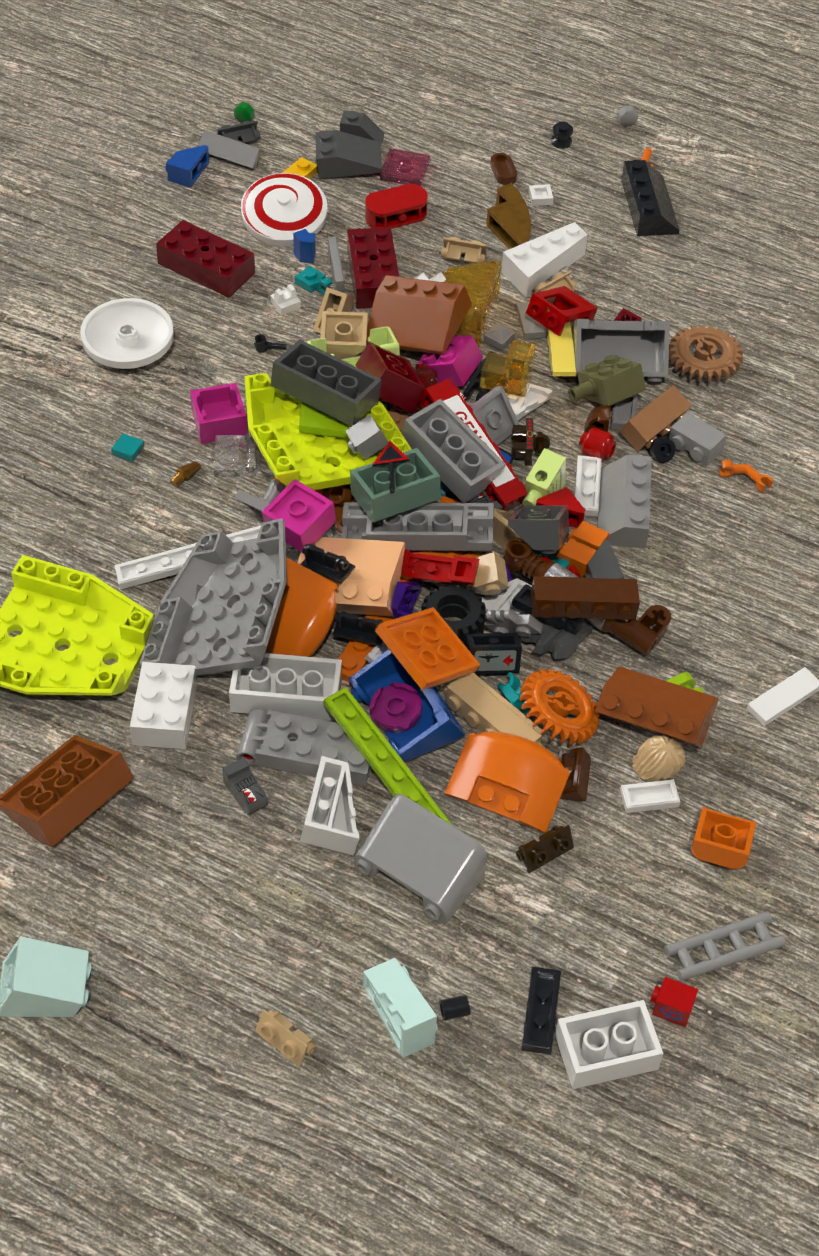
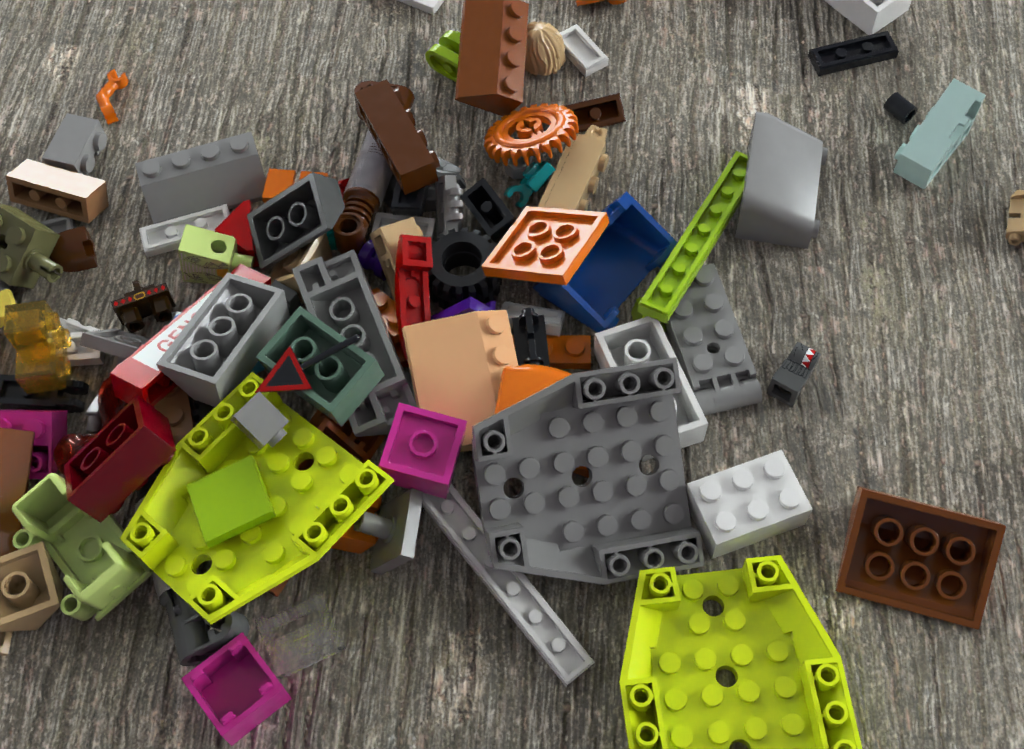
camera: 110 degrees left, 10 degrees up
(185, 473) = (362, 682): pearl gold bar -> none
(262, 345) = (60, 699): black hand -> none
(325, 382) = (189, 499): dark grey brick -> none
(326, 564) = (481, 388): black hinge -> none
(331, 812) = (776, 278): white wedge -> none
(396, 707) = (608, 279): magenta tile -> none
(509, 778) = (640, 150): orange slope -> none
(550, 846) = (701, 104): dark brown hinge -> none
(597, 444) = (120, 235): red head -> none
(604, 564) = (321, 157): dark grey slope -> none
(662, 449) = (104, 172): black tile -> none

